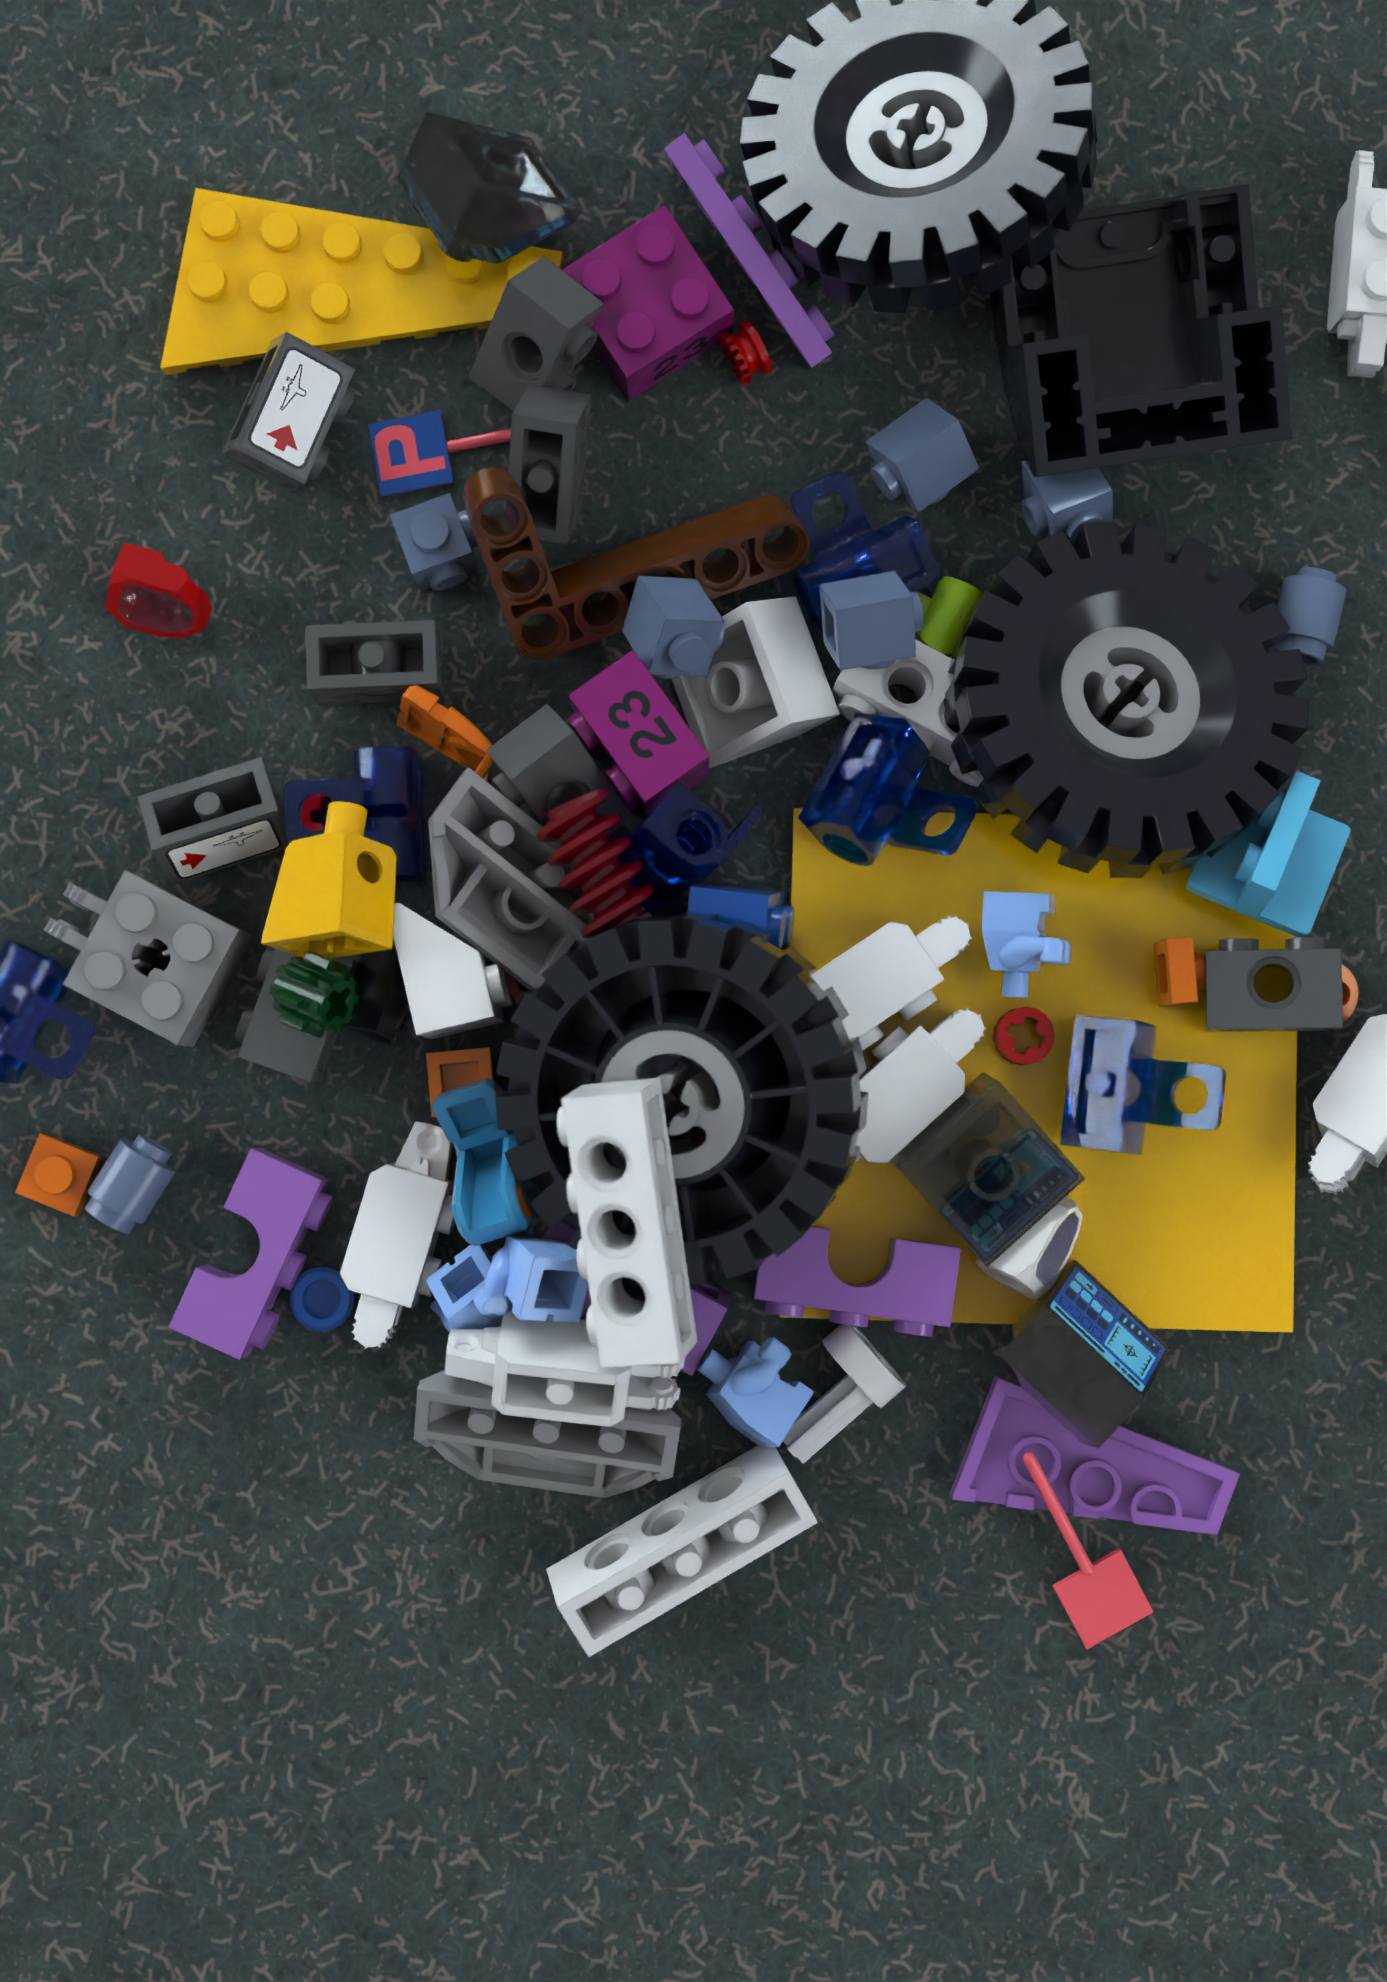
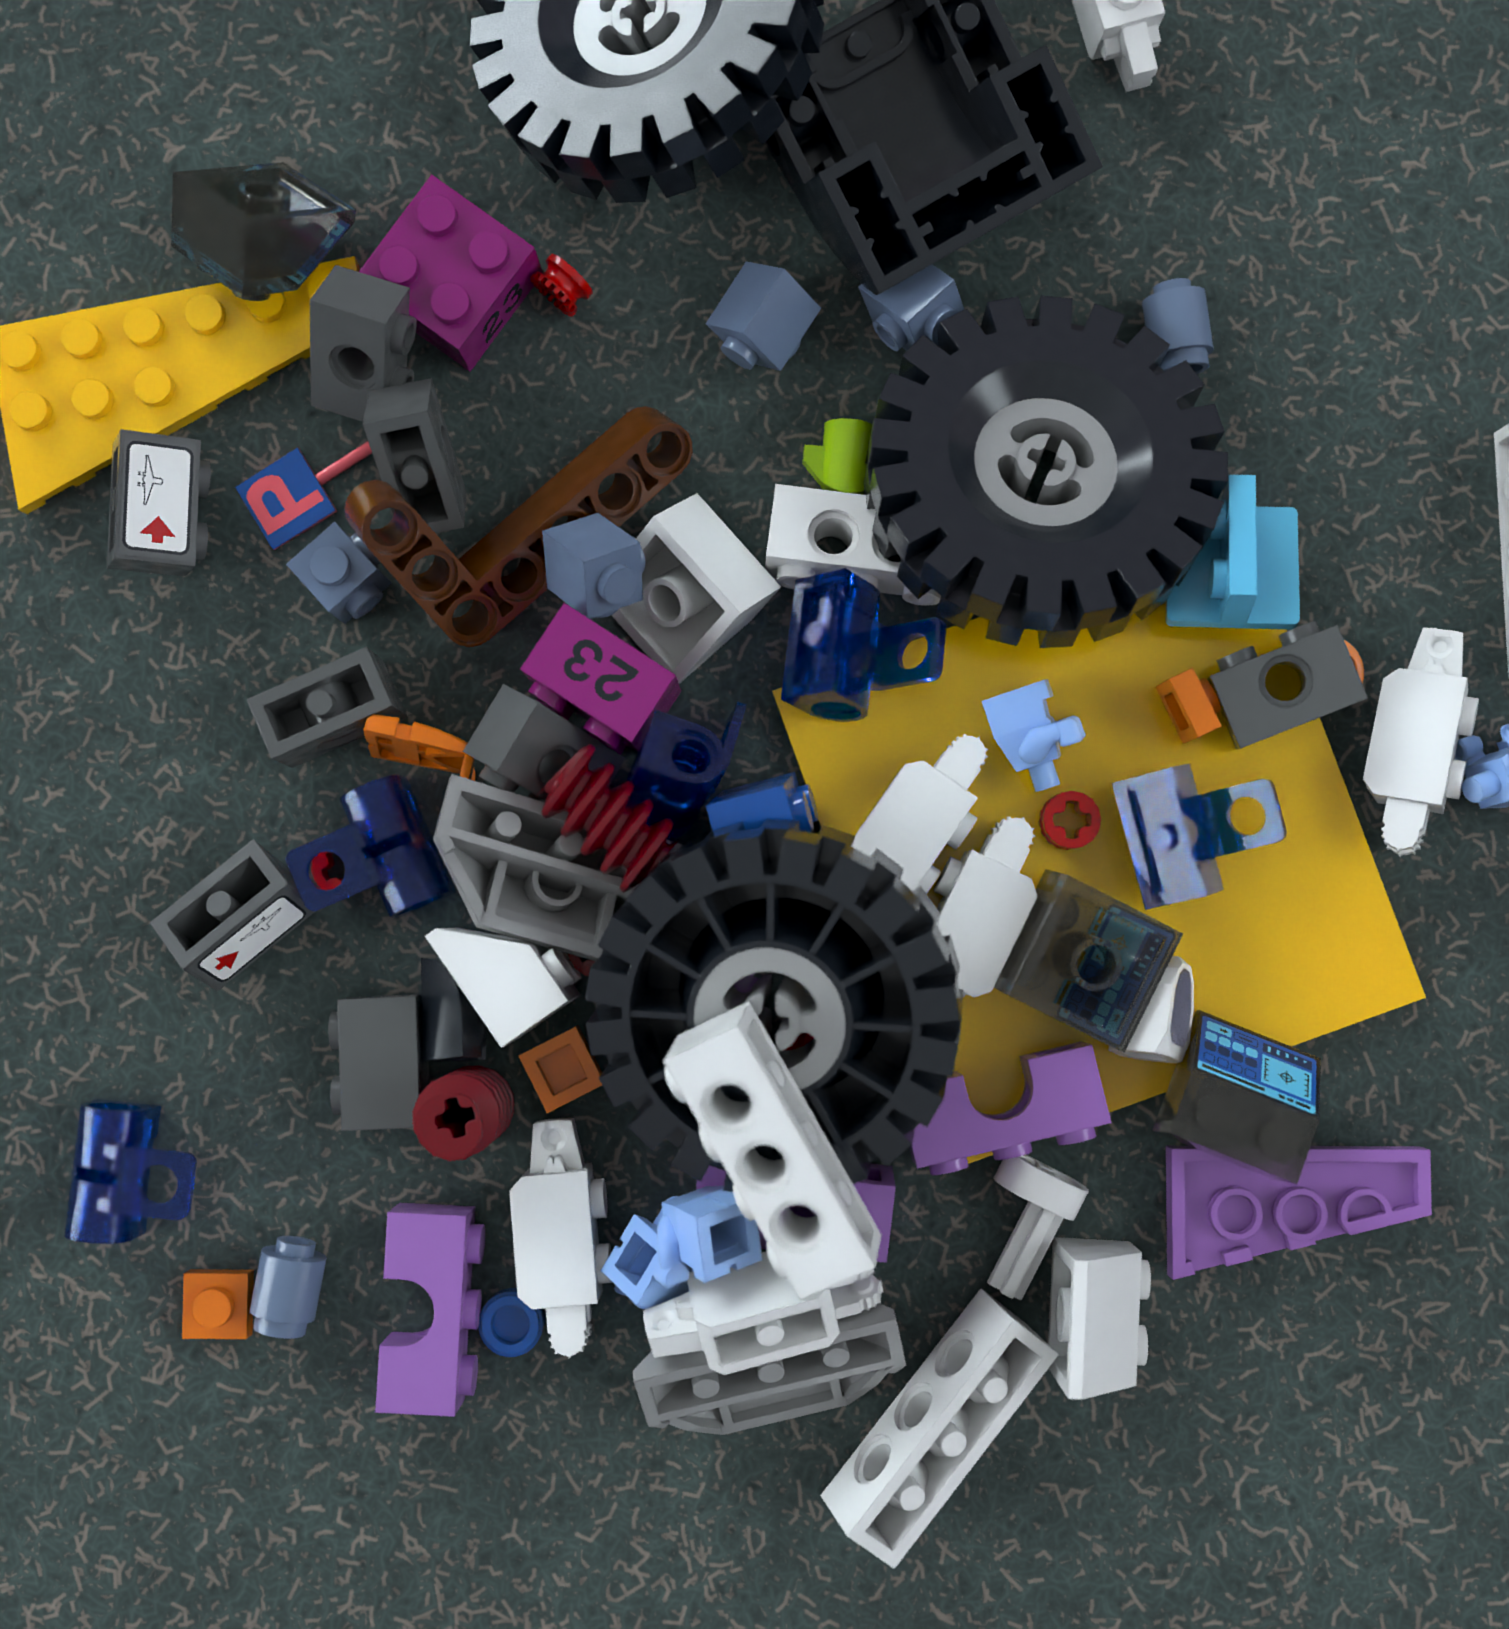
camera: 20 degrees left, 0 degrees up
(117, 954) = (190, 1075): light grey hinge -> none
(155, 595) = (95, 724): red rock -> none
(314, 994) = (389, 1045): dark green gear -> none
(330, 1080) = (459, 1136): none -> dark red piece
(334, 891) = (370, 941): yellow torso -> none
(485, 1193) = (626, 1172): dark azure animal -> none
(737, 225) = (507, 167): medium lavender wing -> none
(753, 1394) = (949, 1255): light blue piece -> none
(855, 548) = (741, 443): clear blue piece -> none
(868, 1503) = (1097, 1315): none -> white slope
(870, 620) = (776, 488): sand blue brick -> none
(1101, 1594) = (1345, 1310): coral piece -> none

